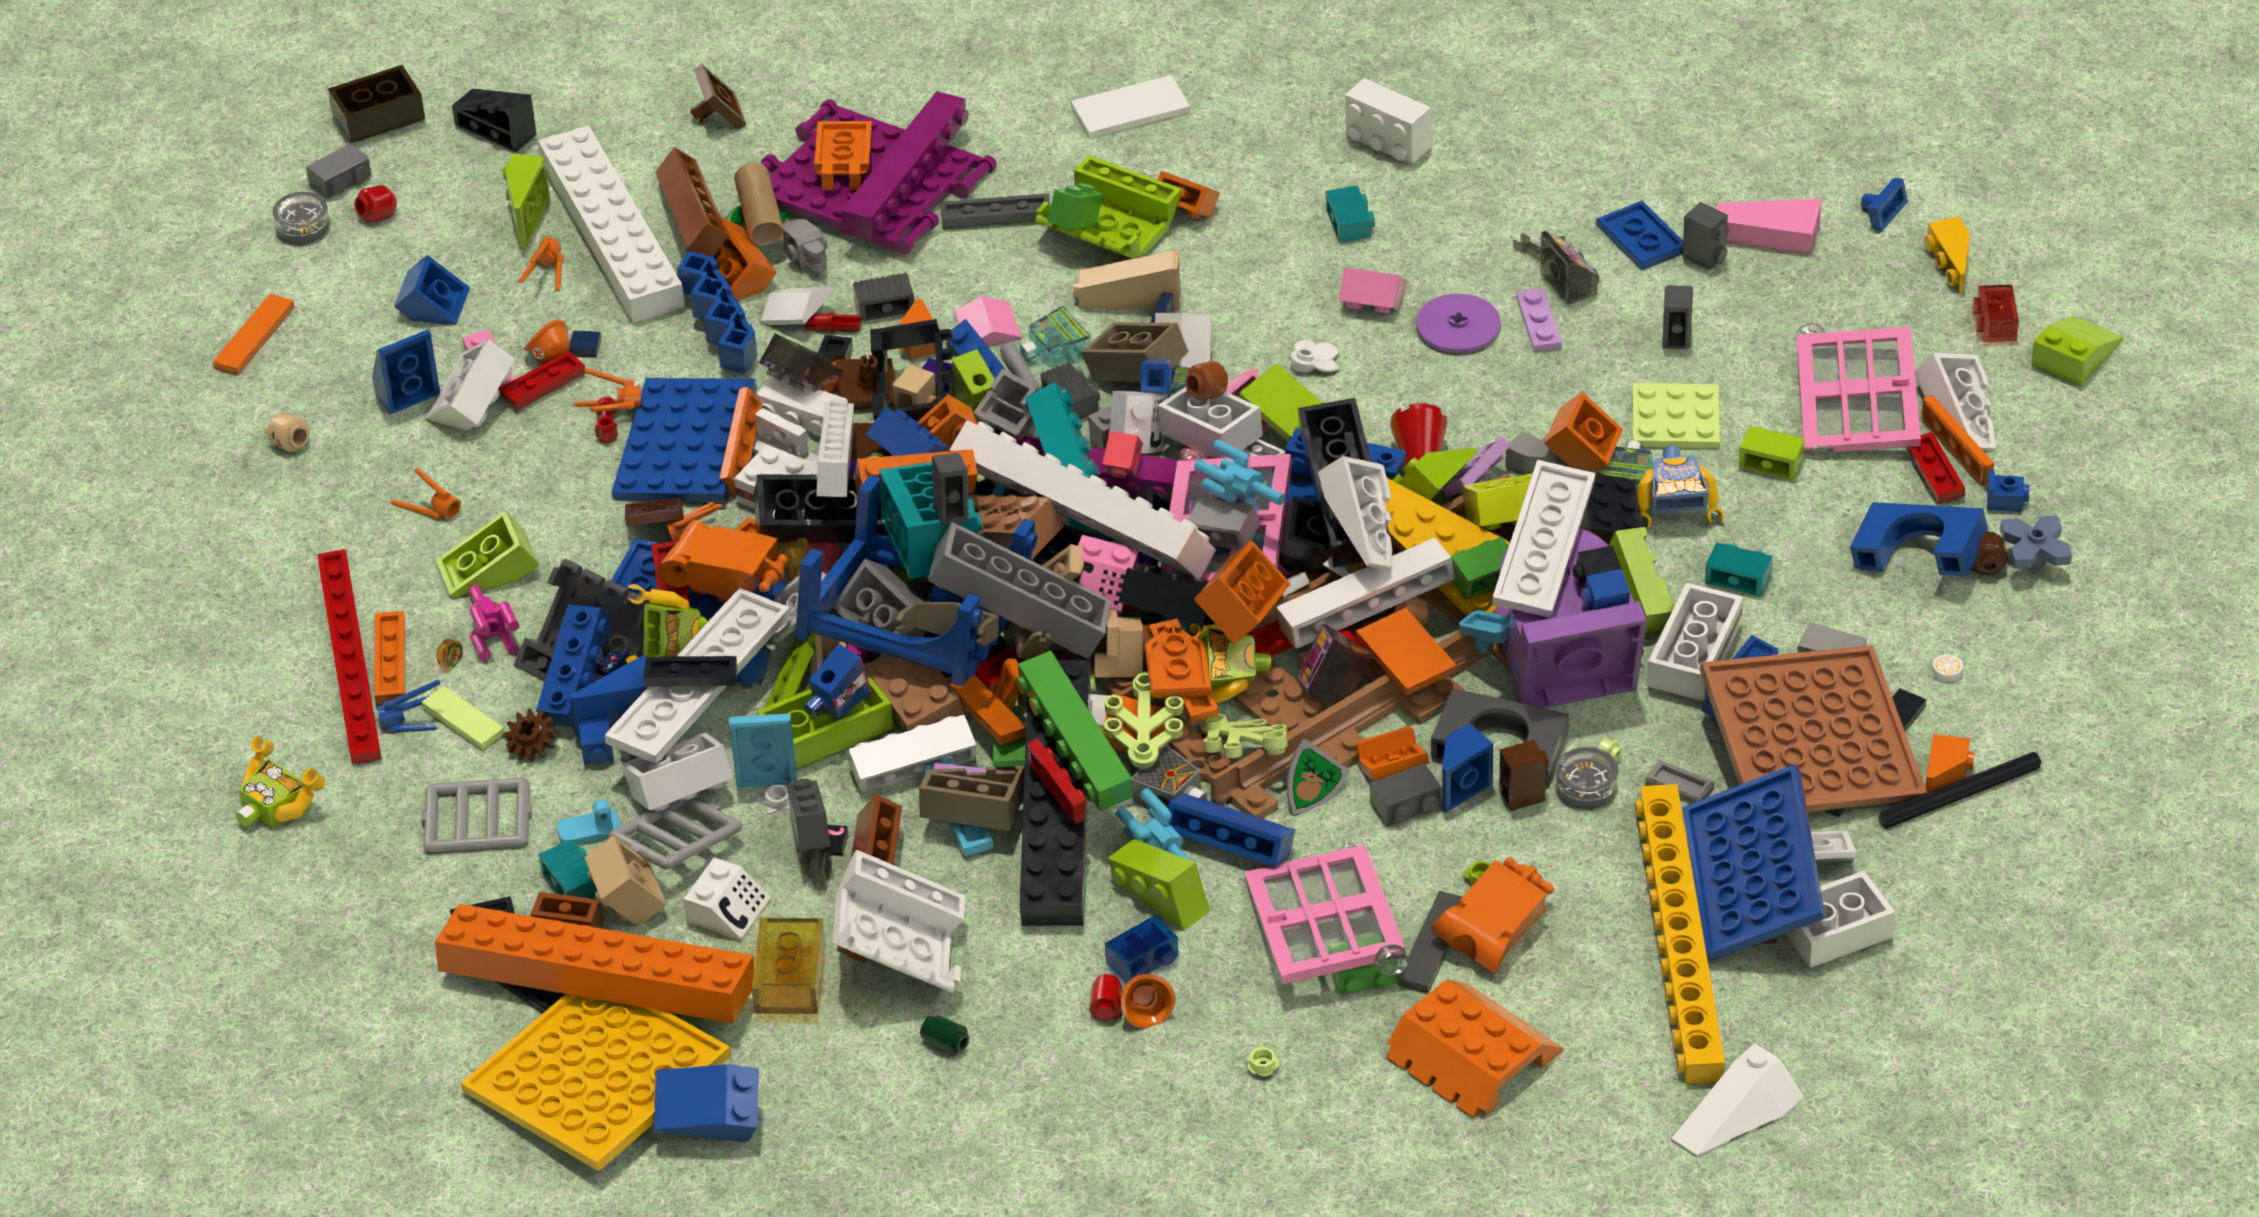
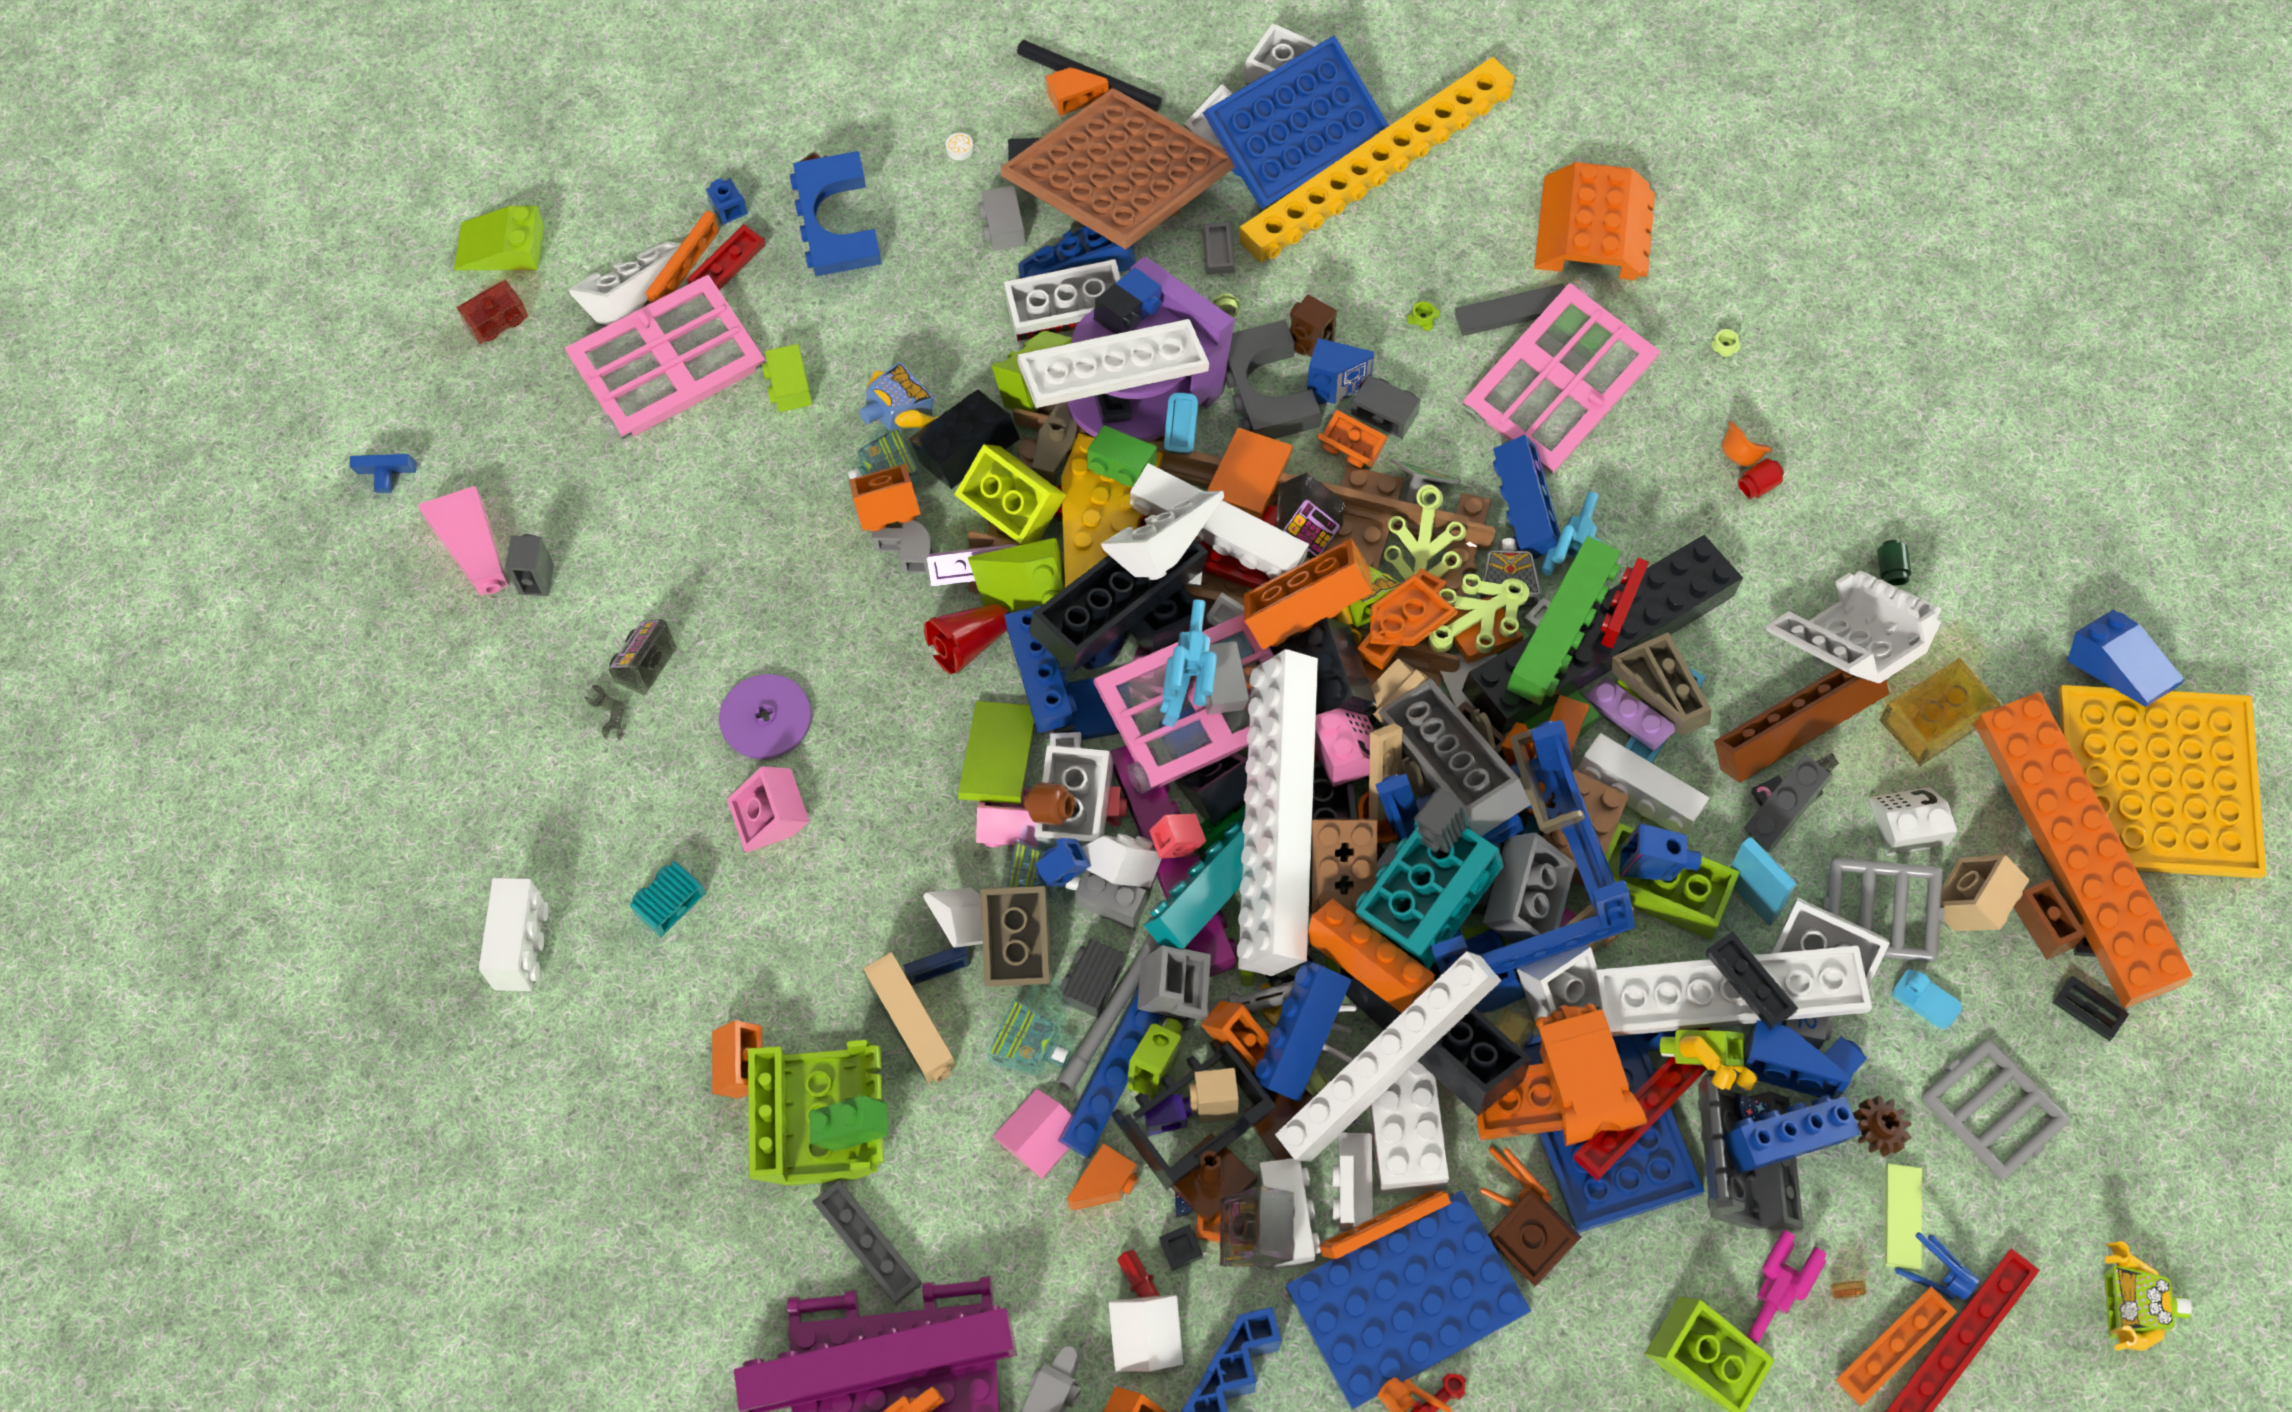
camera: 125 degrees left, 20 degrees up
(567, 870) = (1992, 966): teal brick -> none
(793, 670) = (1653, 948): lime plate -> none
(883, 296) = (1074, 1254): dark grey brick -> none
(1130, 106) = (610, 1228): white tile -> none
(1142, 949) = (1696, 483): clear blue brick -> none
(1161, 881) = (1624, 509): lime wedge -> none
(1311, 356) = (887, 806): white plate -> none
(1495, 912) = (1465, 270): orange piece -> none
(1538, 320) = (717, 655): lavender plate -> none
(1586, 777) = (1269, 296): clear piece -> none
(1641, 234) = (539, 641): blue tile -> none
(1676, 415) = (780, 479): yellowish green plate -> none
(1677, 317) = (661, 526): dark grey brick -> none
(1738, 569) = (949, 326): teal brick -> none
(1744, 1098) = (1512, 49): white wedge -> none
(1950, 246) = (418, 386): yellow slope -> none
(2035, 544) = (787, 140): sand blue plant -> none

